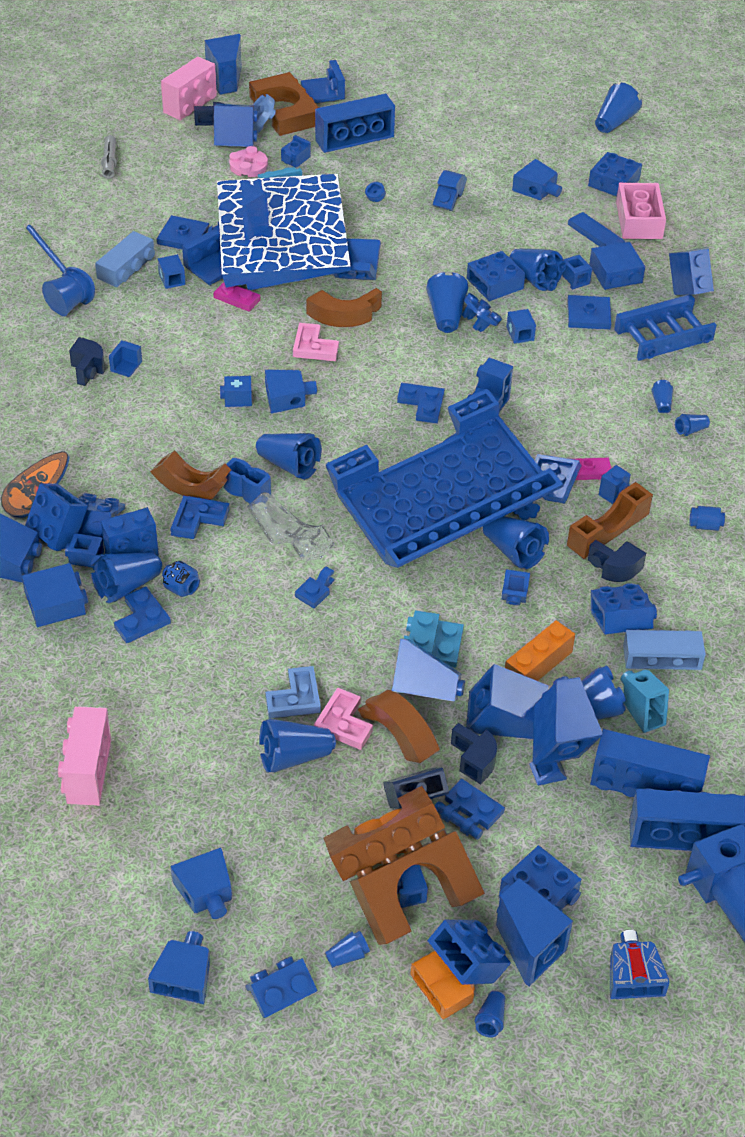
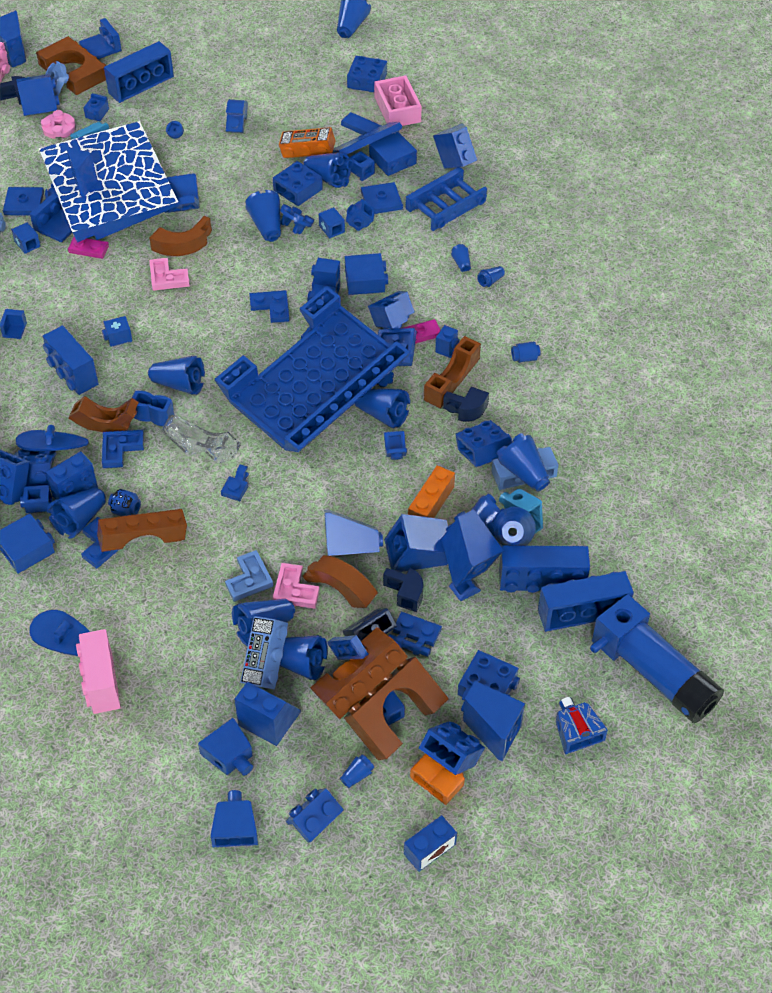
camera: 15 degrees left, 5 degrees up
(55, 699) = (57, 631): none -> blue shield
(121, 491) = (49, 440): none -> blue shield
(161, 605) = (118, 531): none -> dark orange arch
(172, 410) = (70, 360): none -> blue brick
(259, 852) = (264, 713): none -> blue slope
(281, 782) = (264, 652): none -> brick
(287, 390) = (158, 320): blue torso -> none
(323, 796) = (305, 655): none -> blue cone
(380, 801) = (347, 647): none -> blue tile
(407, 1058) = (430, 843): none -> blue brick
(436, 636) = (344, 500): dark azure plate -> none
(491, 1015) = (481, 792): blue cone -> none
(520, 233) = (307, 142): none -> orange brick
(536, 181) = (305, 92): blue torso -> none
(542, 389) = (365, 274): none -> blue brick
(556, 324) = (360, 215): none -> blue brick
(559, 436) = (392, 310): none -> blue brick
(593, 242) = (368, 138): none -> blue tile
(636, 711) = (514, 518): none -> blue cone
(662, 639) = (524, 462): none -> blue cone

